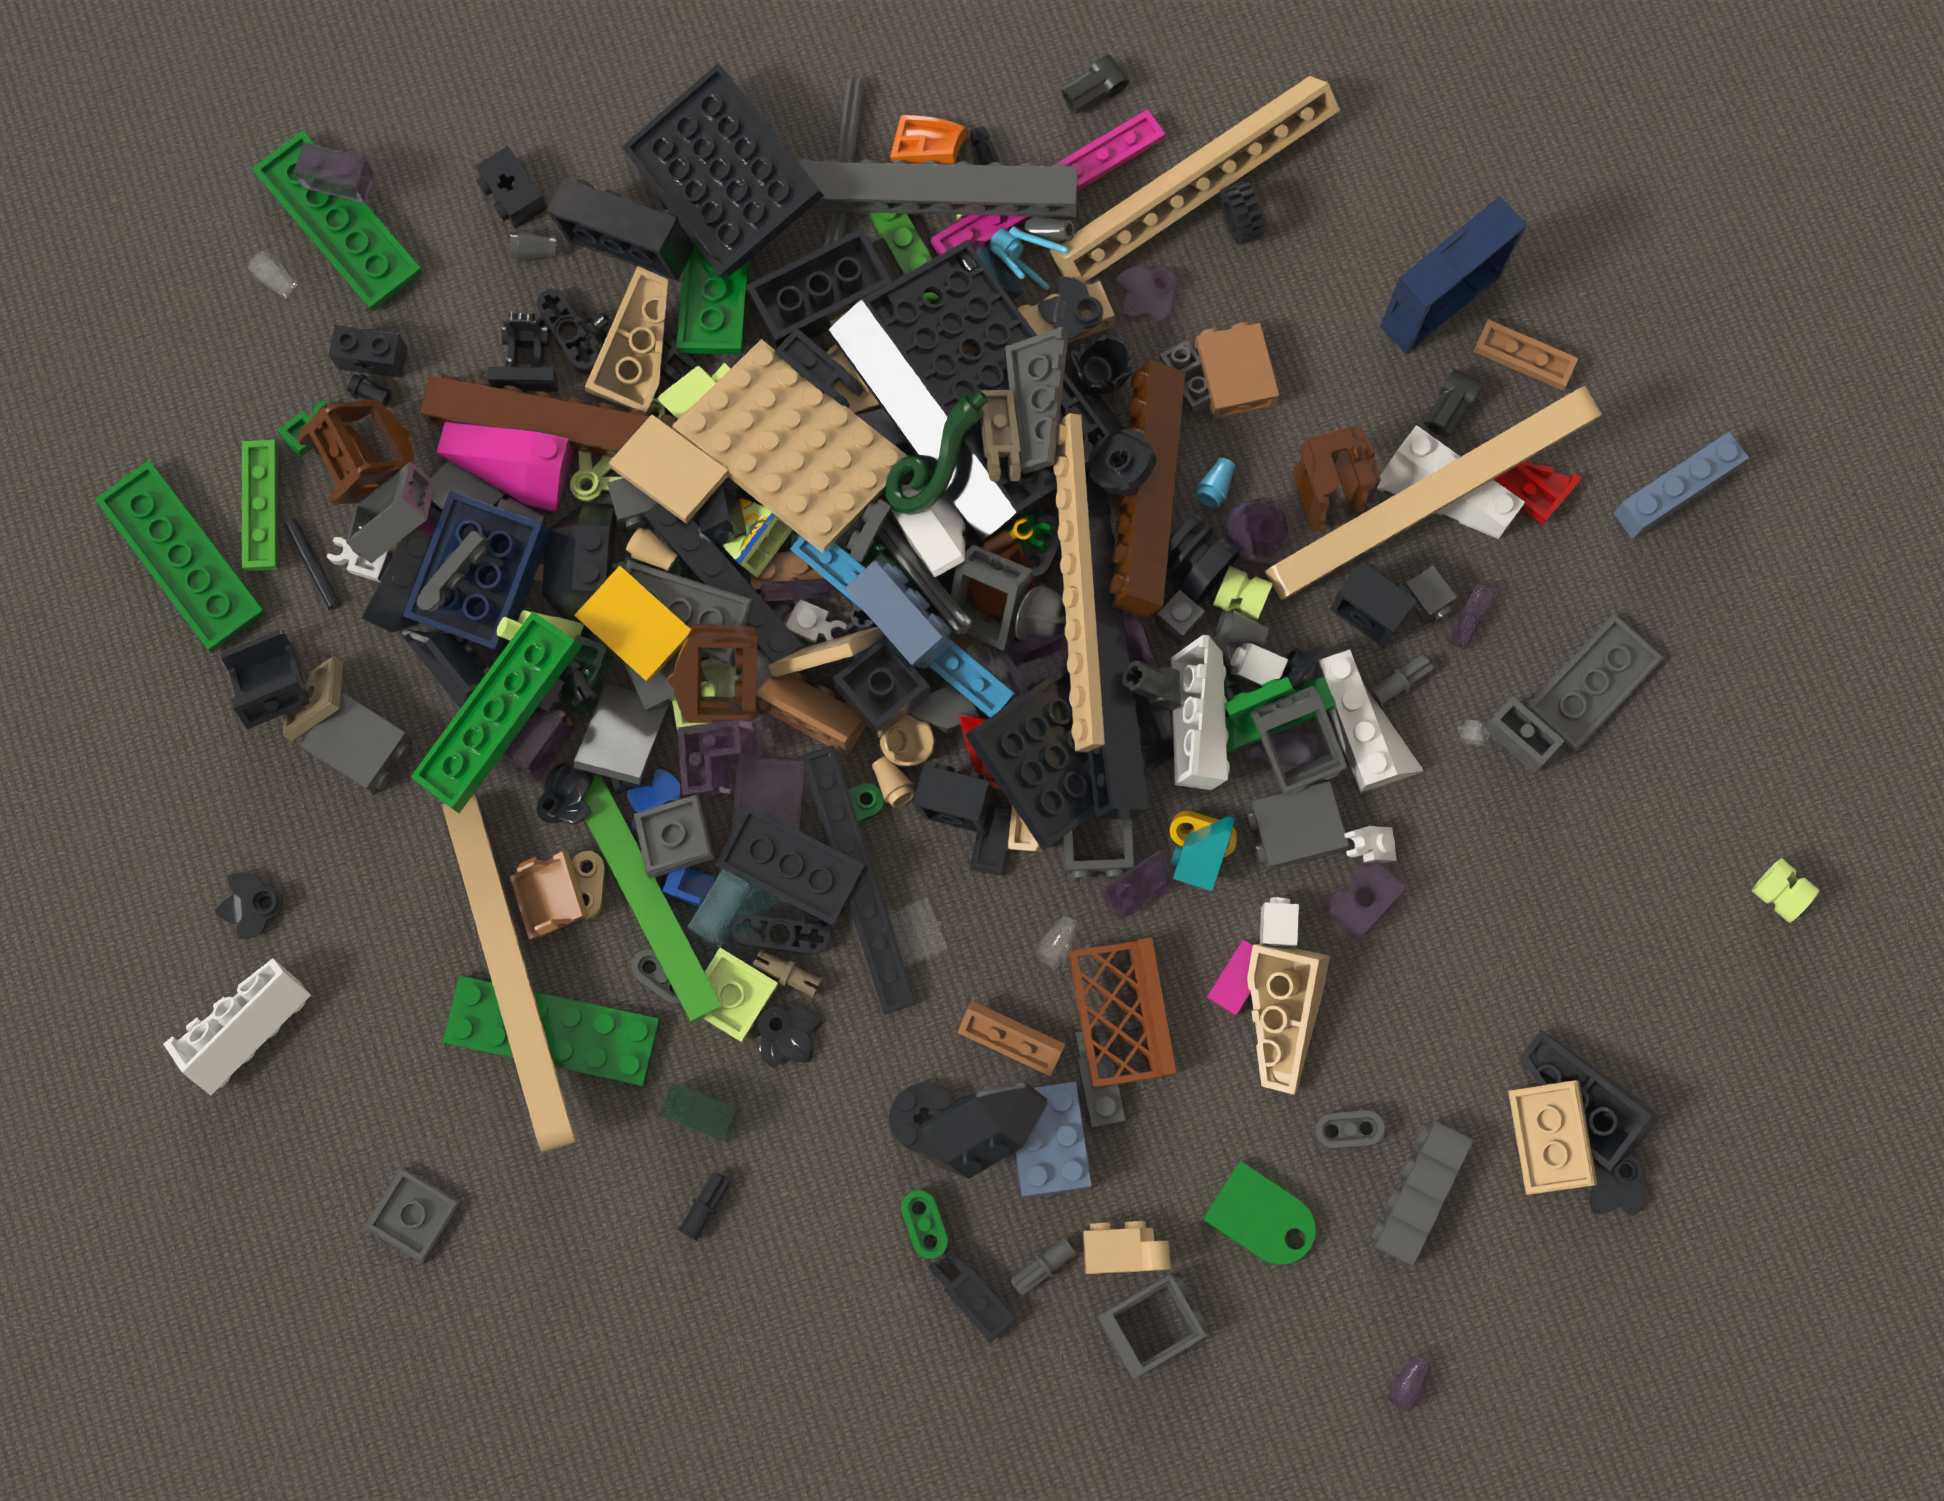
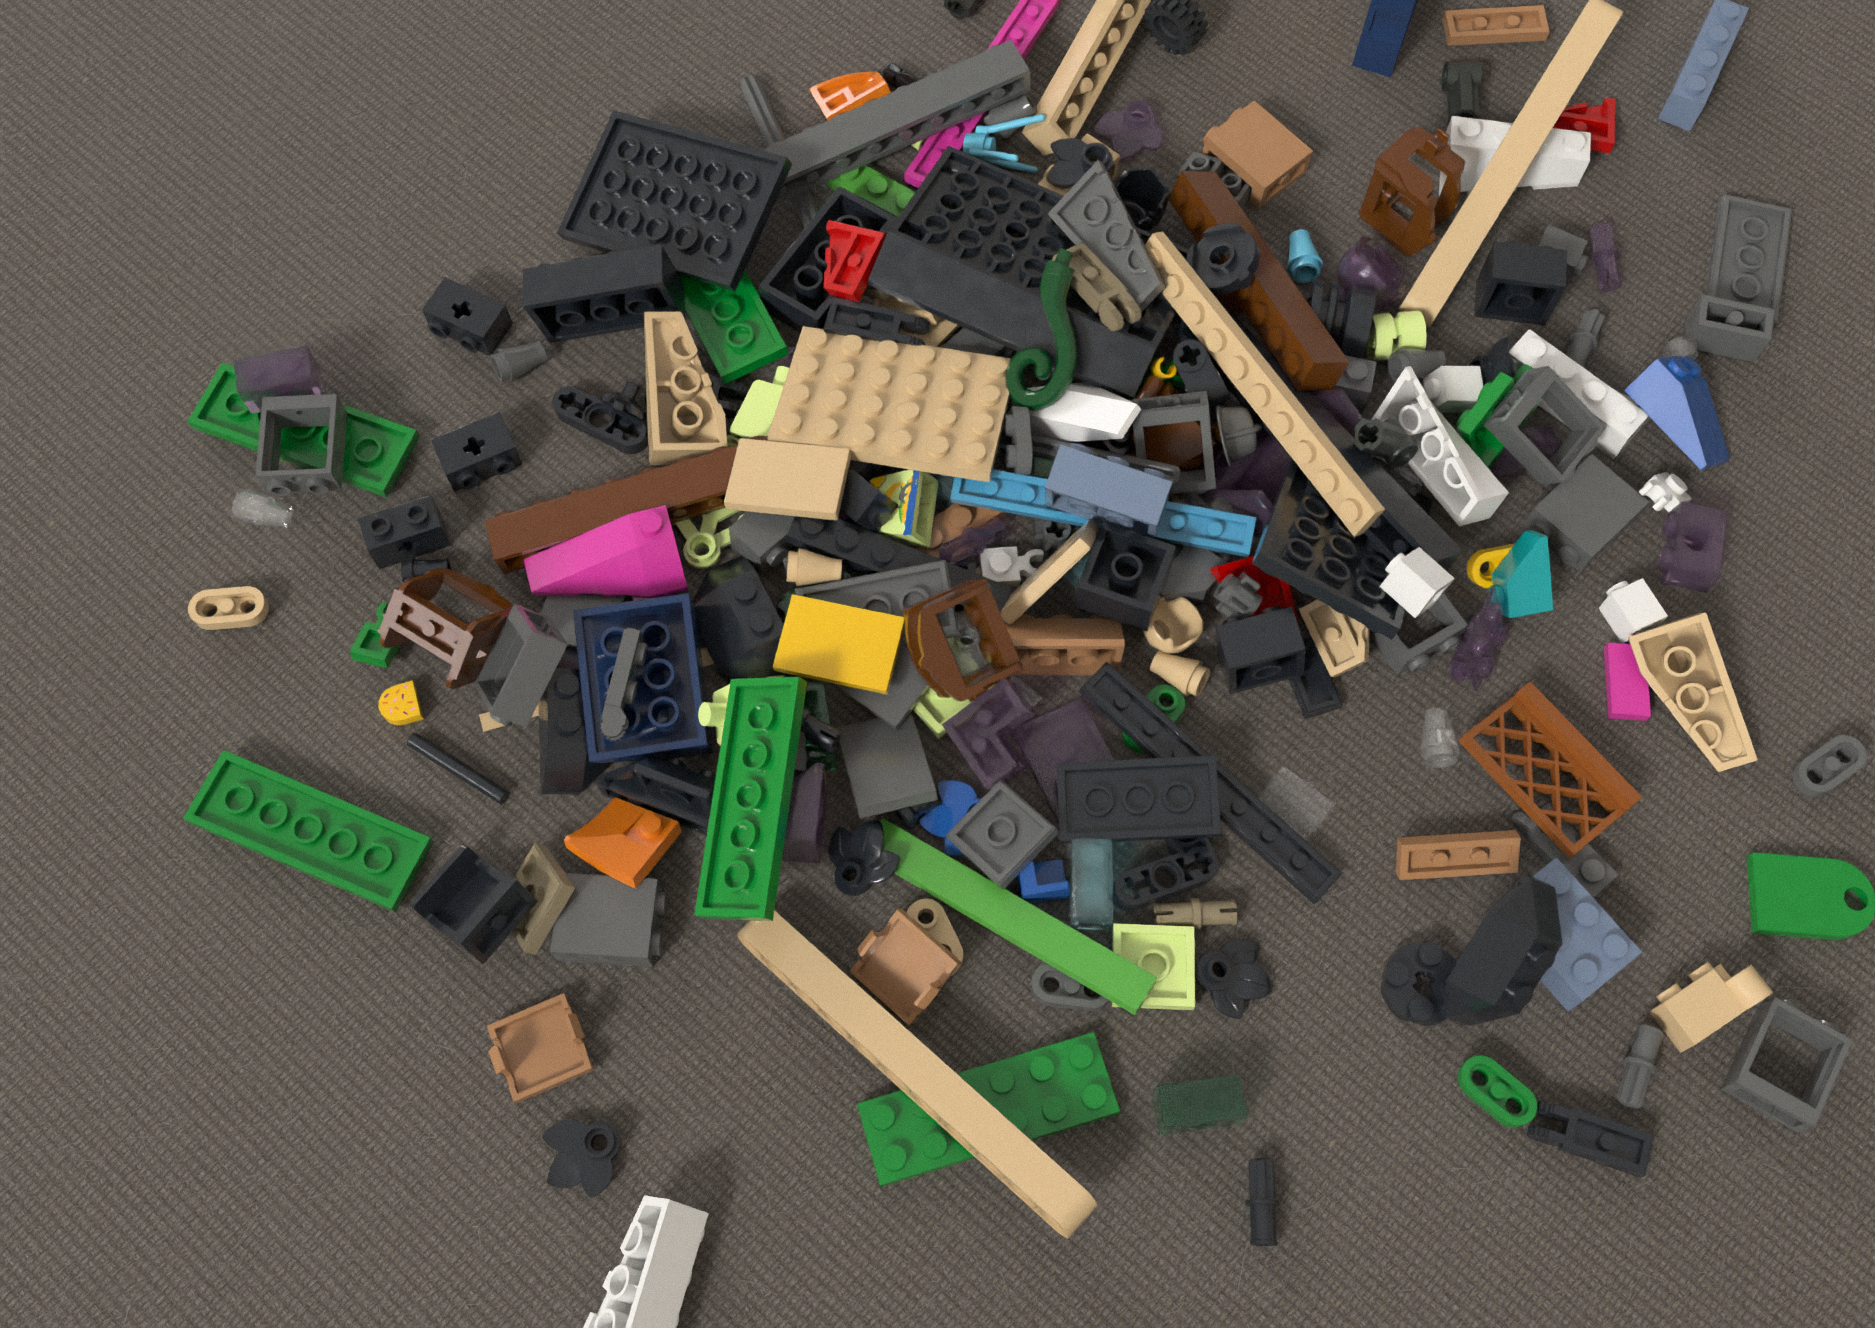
camera: 30 degrees left, 10 degrees down
(210, 346) = (230, 607): none -> tan plate
(259, 811) = (539, 1048): none -> medium nougat piece
(260, 505) = (369, 737): bright green plate -> none
(297, 490) = (401, 704): none -> yellow tile
(317, 202) = (300, 412): none -> dark grey window
(358, 564) = (509, 739): white plate -> none
(398, 689) = (624, 841): none -> orange plate
(444, 302) = (476, 452): none -> black brick
(524, 332) = (560, 438): black tile -> none
(826, 302) = (850, 259): none -> red wing
(958, 750) = (1238, 596): none -> dark grey gear
(1043, 554) = (1202, 375): none -> black piece
(1090, 815) = (1416, 581): none -> white brick
(1430, 786) = (1682, 407): none -> slope

